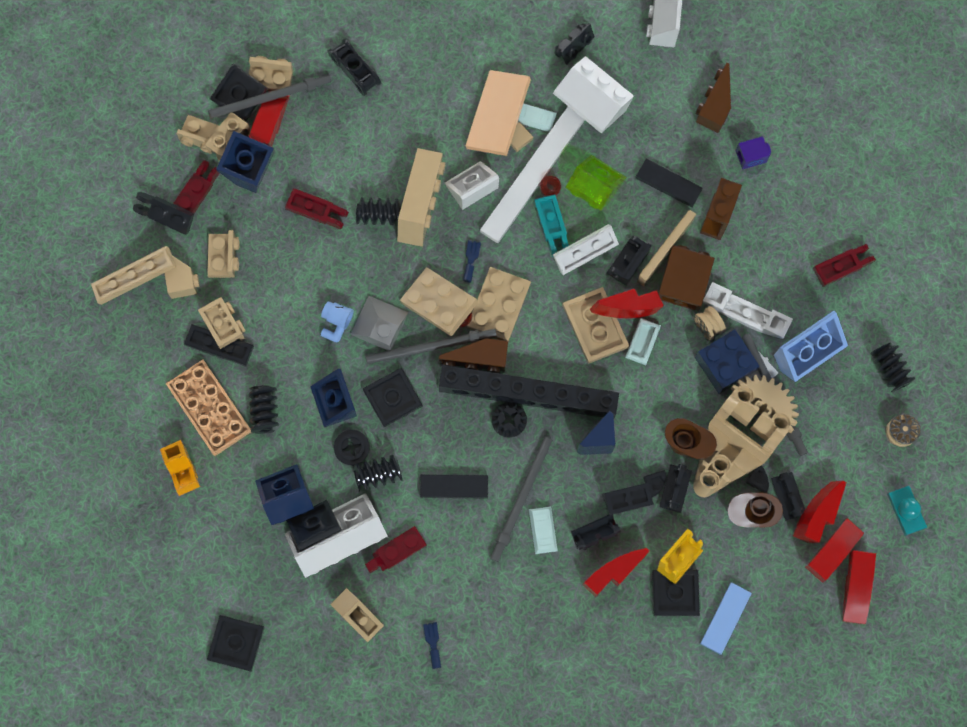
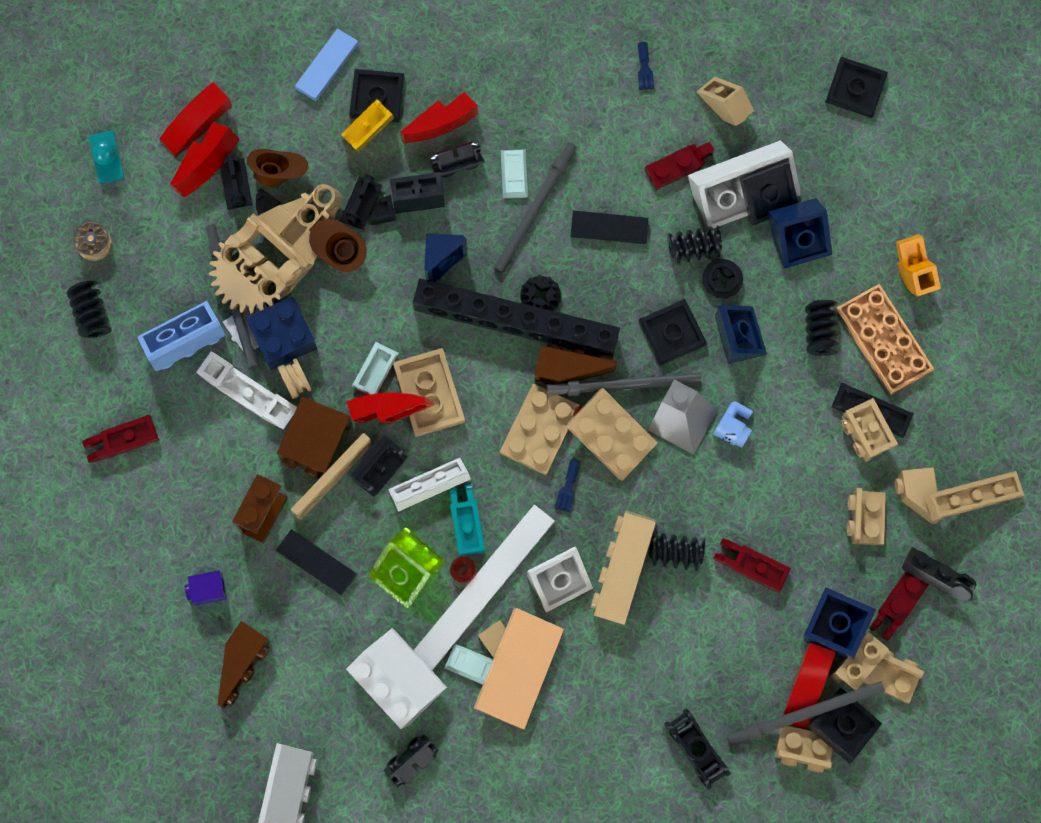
camera: 175 degrees left, 0 degrees up
(858, 586) = (176, 81): red slope -> none

